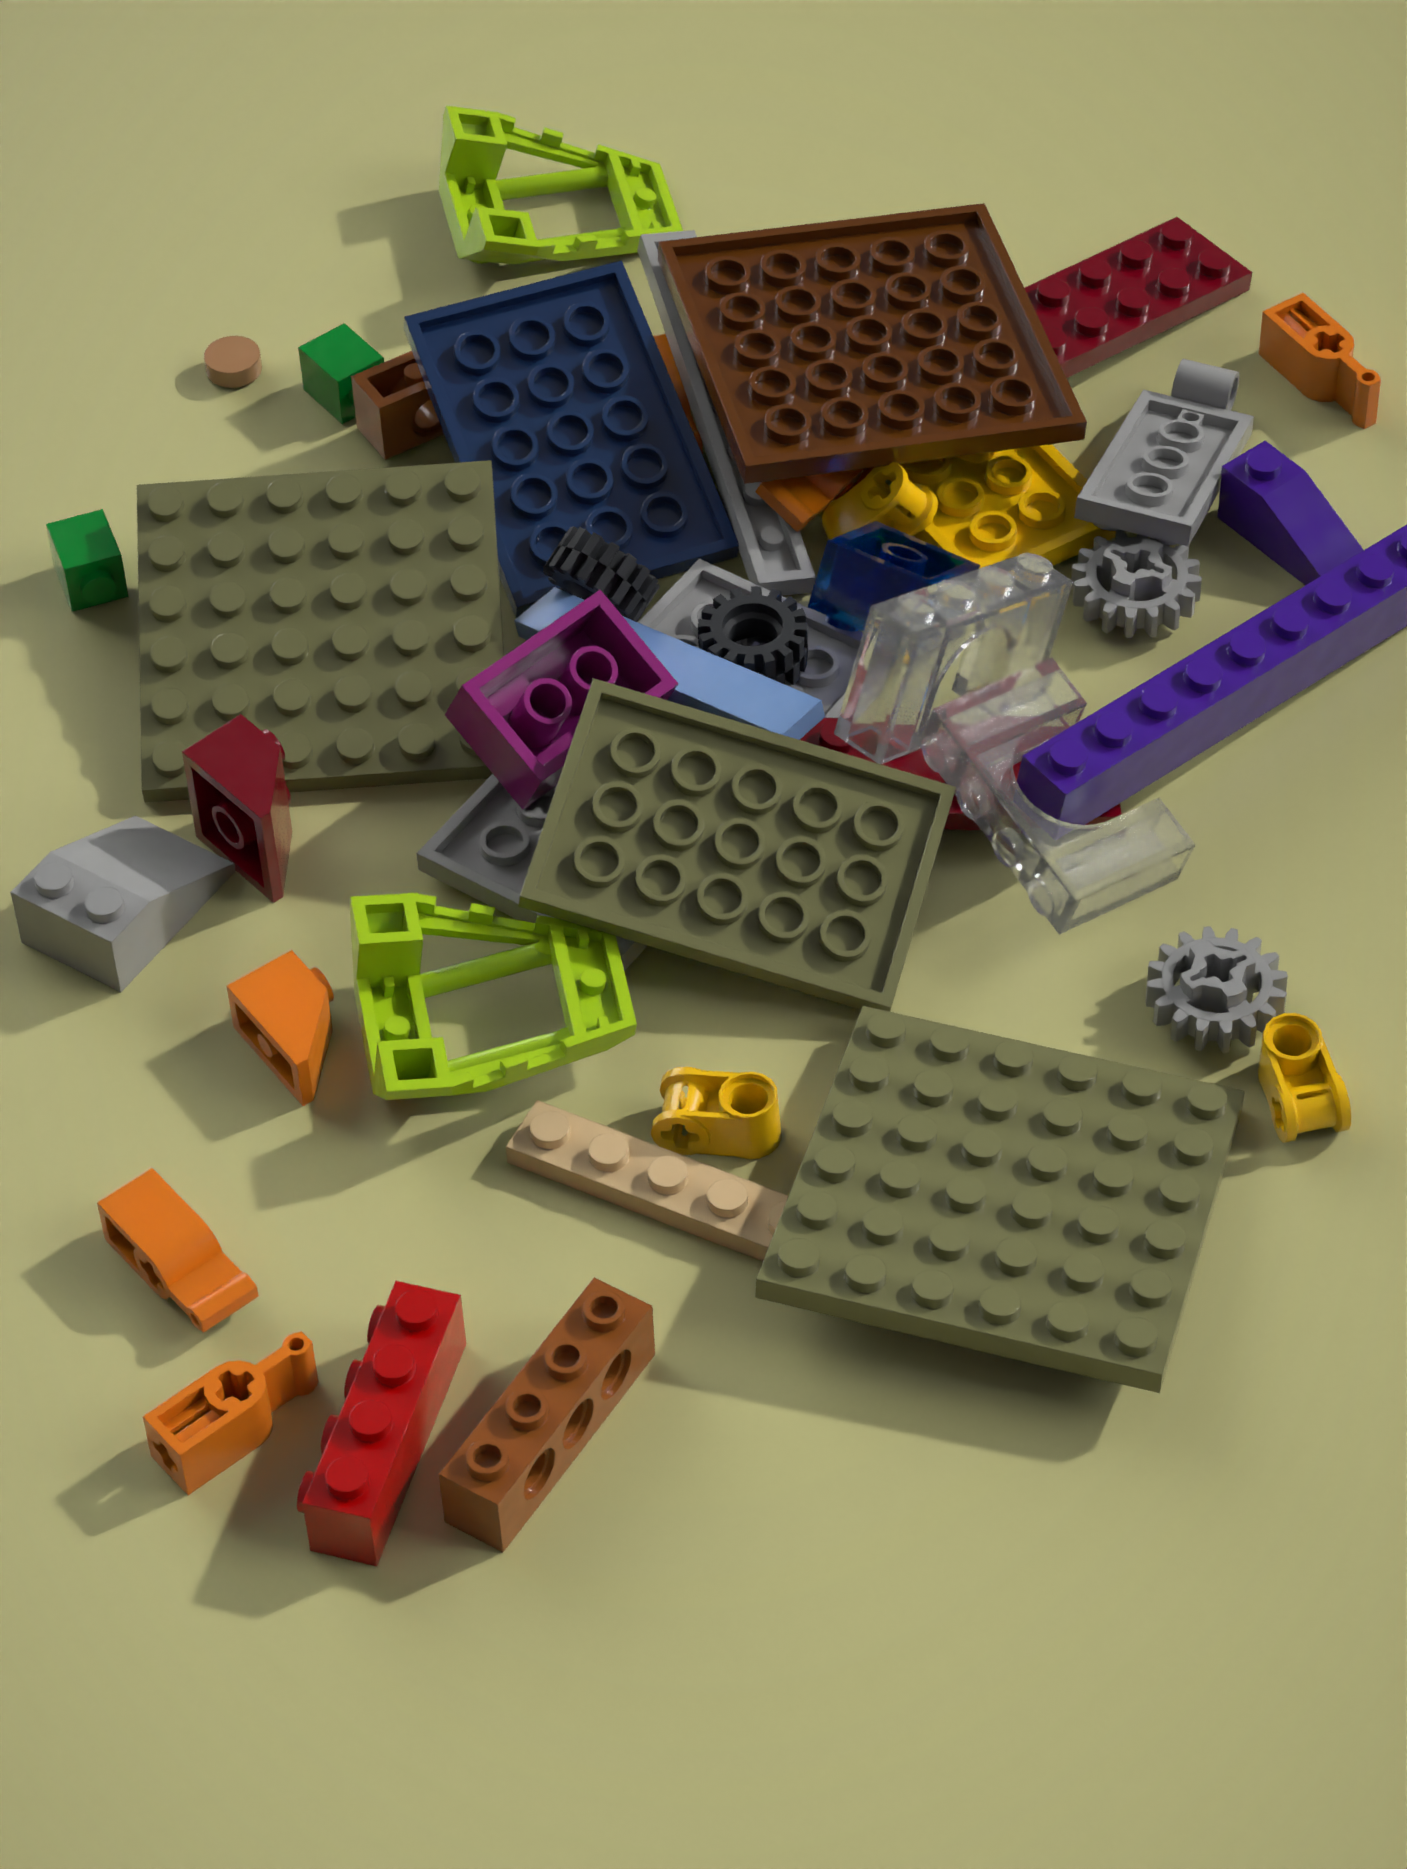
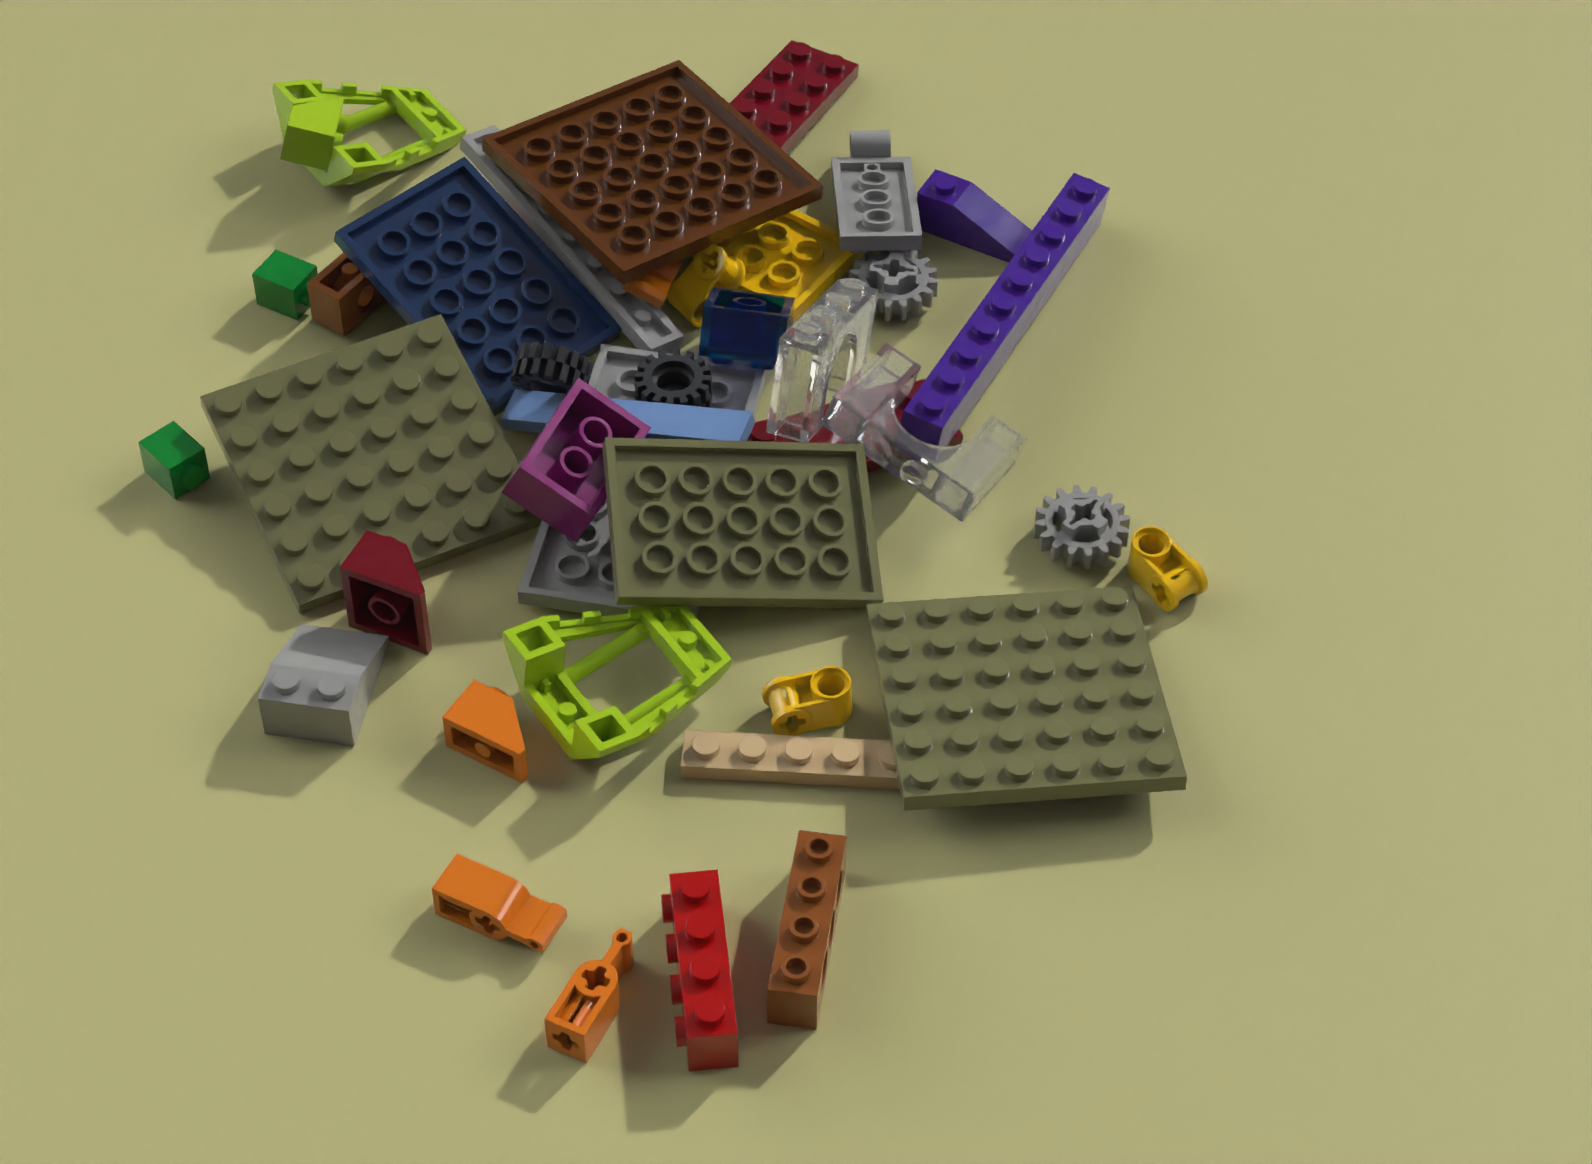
camera: 25 degrees left, 0 degrees up
(233, 361) = (199, 297): medium nougat tile -> none
(466, 177) = (313, 132): none -> lime slope
(1318, 358) = (932, 109): orange piece -> none

